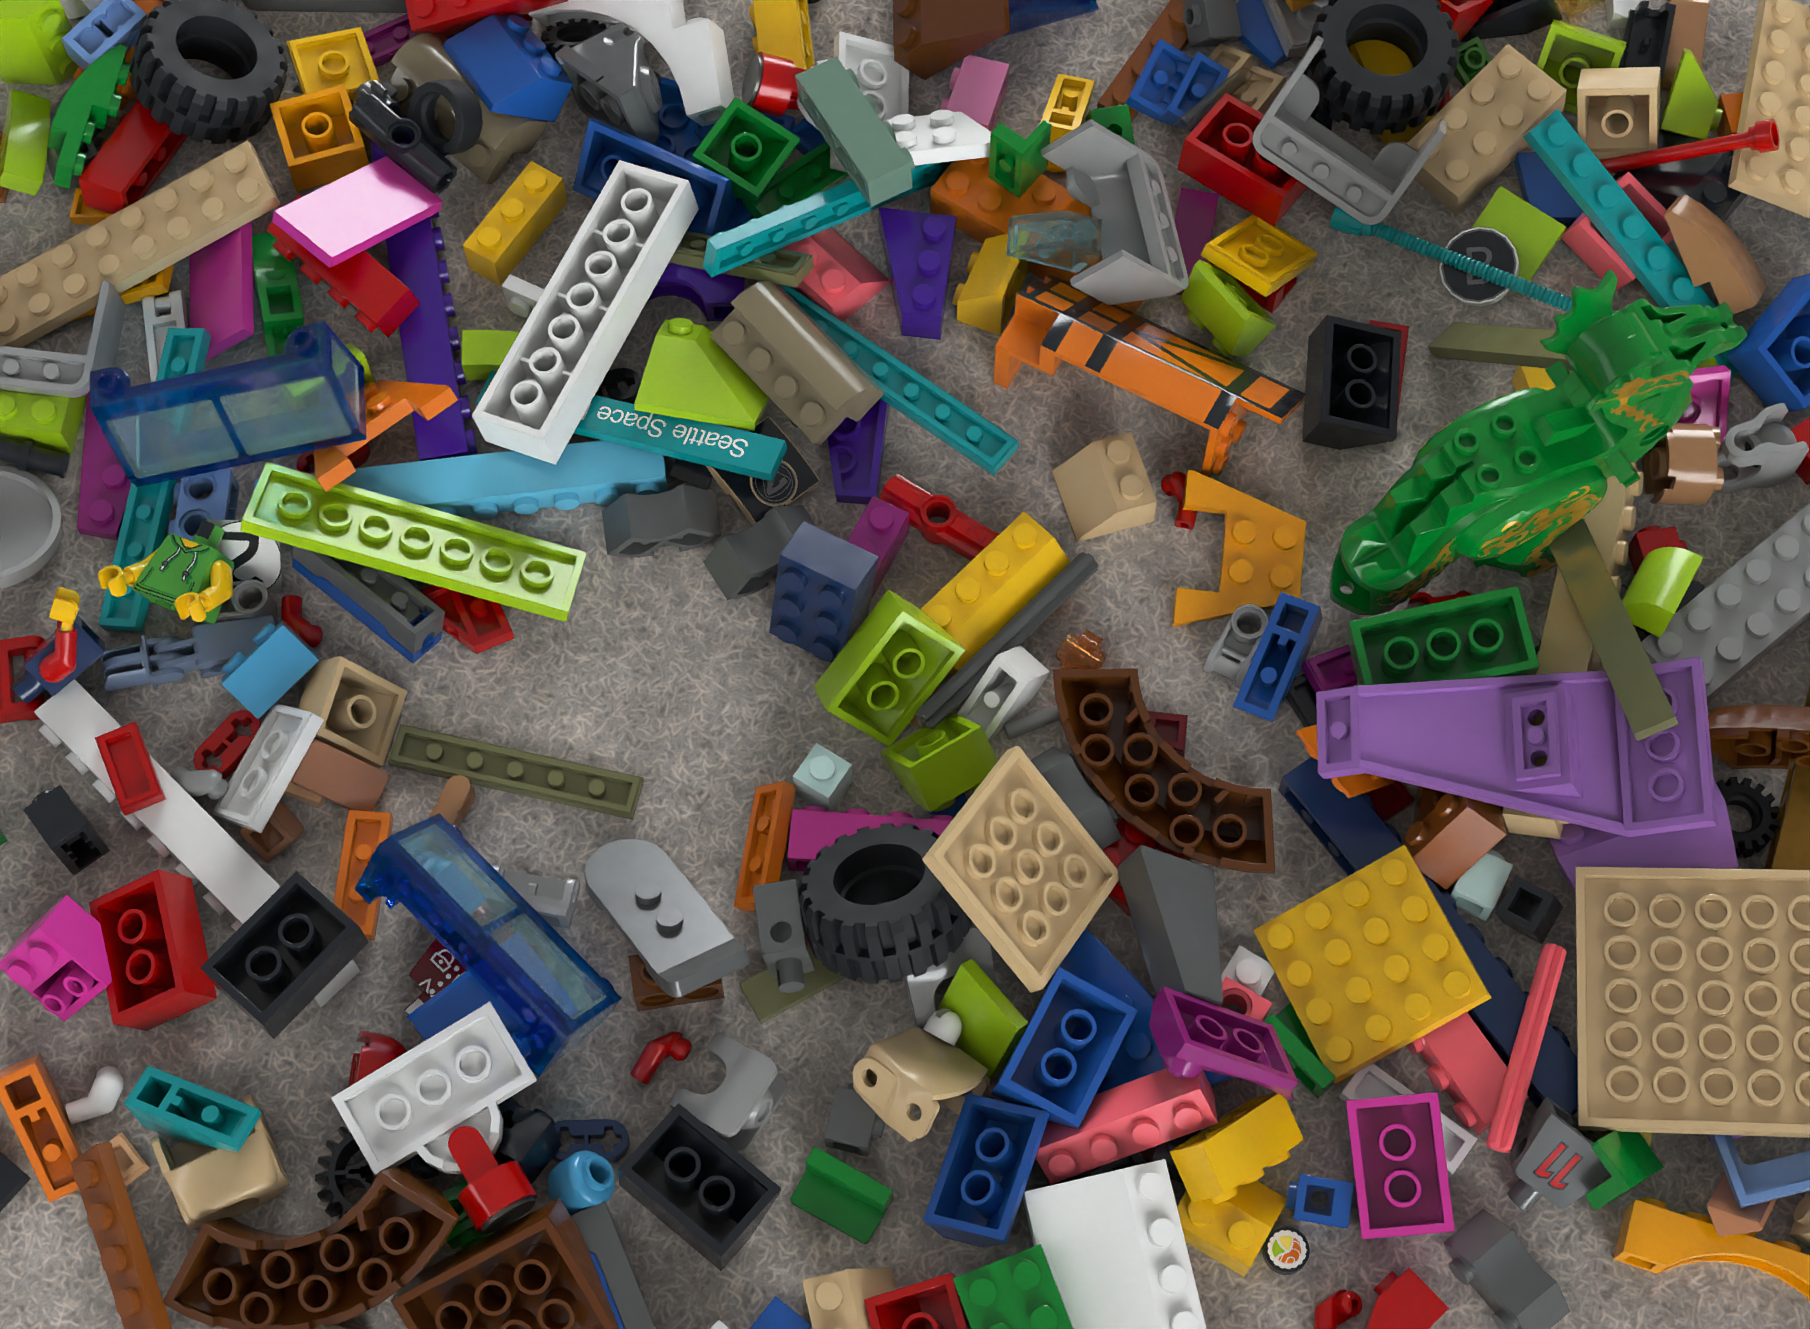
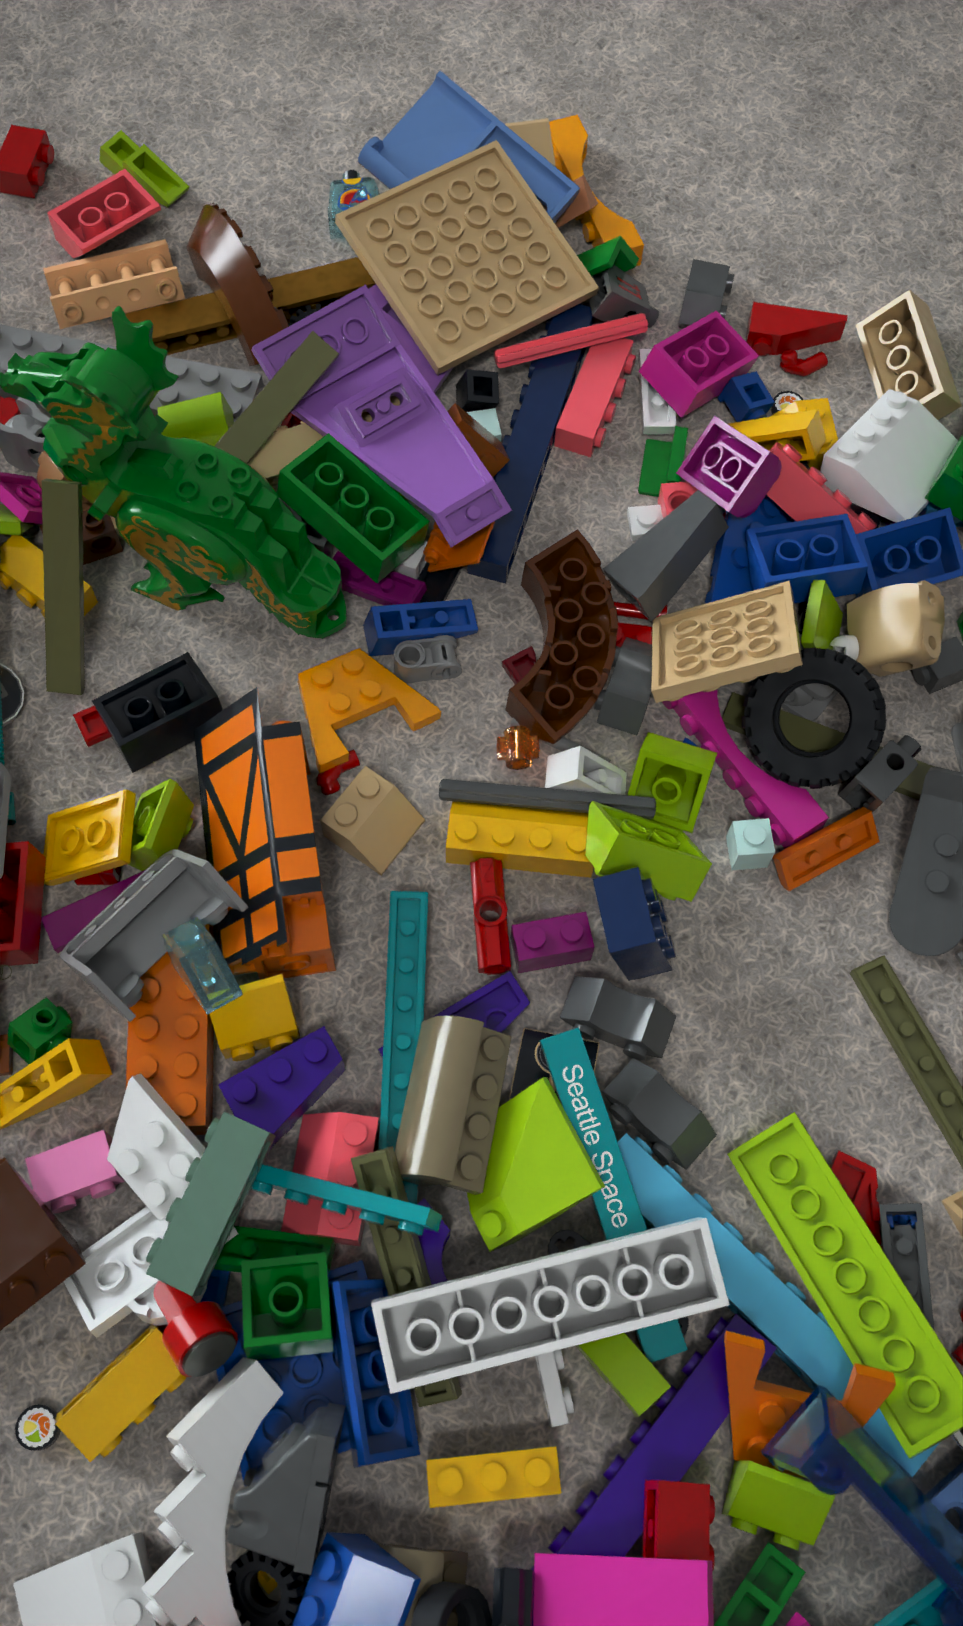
camera: 130 degrees left, 0 degrees up
(1015, 160) = (146, 1042): green panel -> none
(1371, 964) = (590, 446): yellow plate -> none

